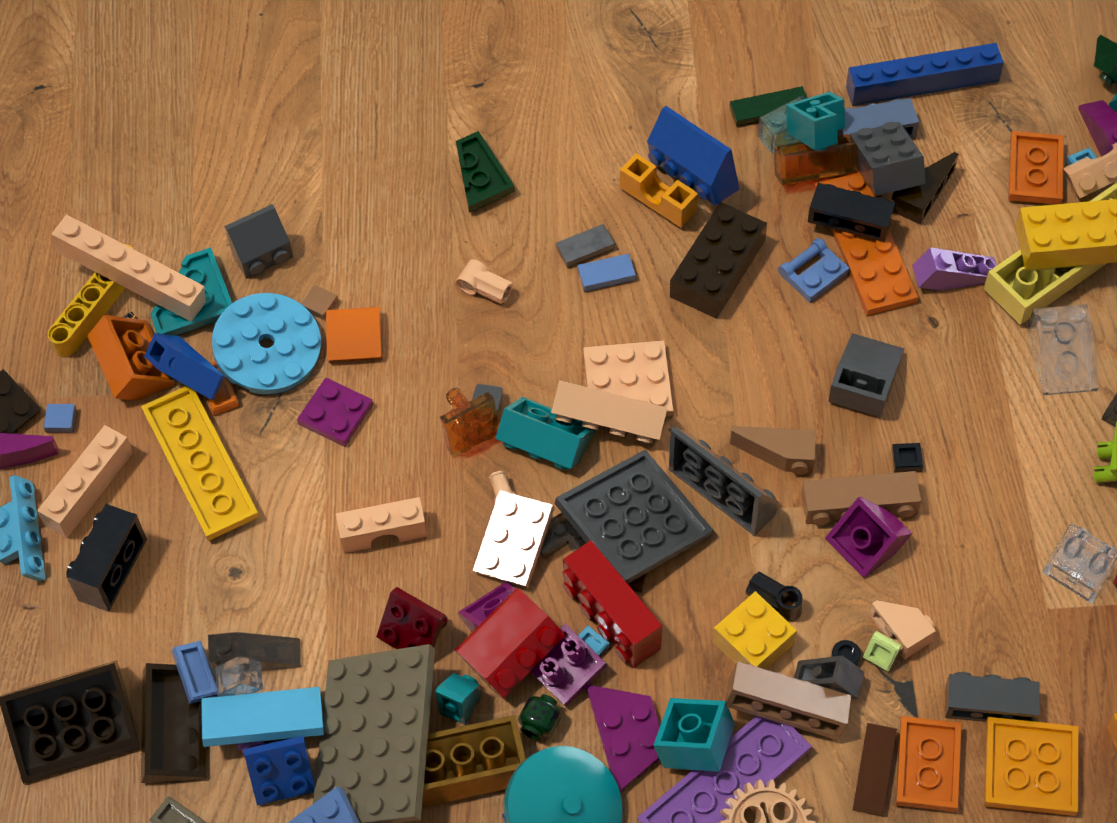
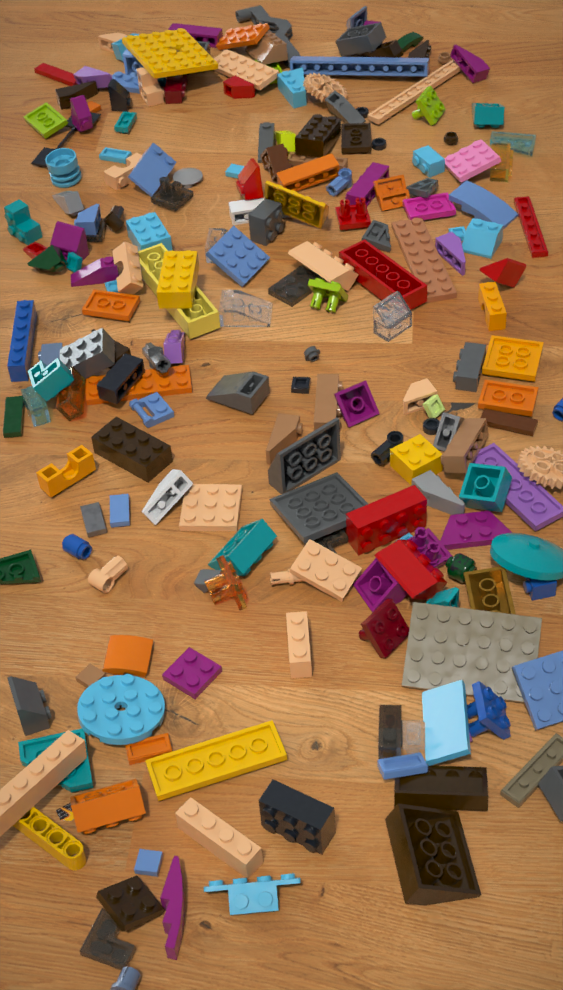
camera: 80 degrees left, 15 degrees down
(184, 363) = (131, 756): blue slope -> none
(527, 236) = (76, 546): none -> blue brick
(608, 410) = (238, 509): light nougat brick -> none
(631, 319) = (166, 495): none -> white slope
(692, 157) = (50, 442): blue slope -> none
(692, 666) = (438, 494): none -> light grey slope
(911, 248) = (156, 357): none -> dark grey piece
(978, 461) = (311, 354): none -> dark grey plate

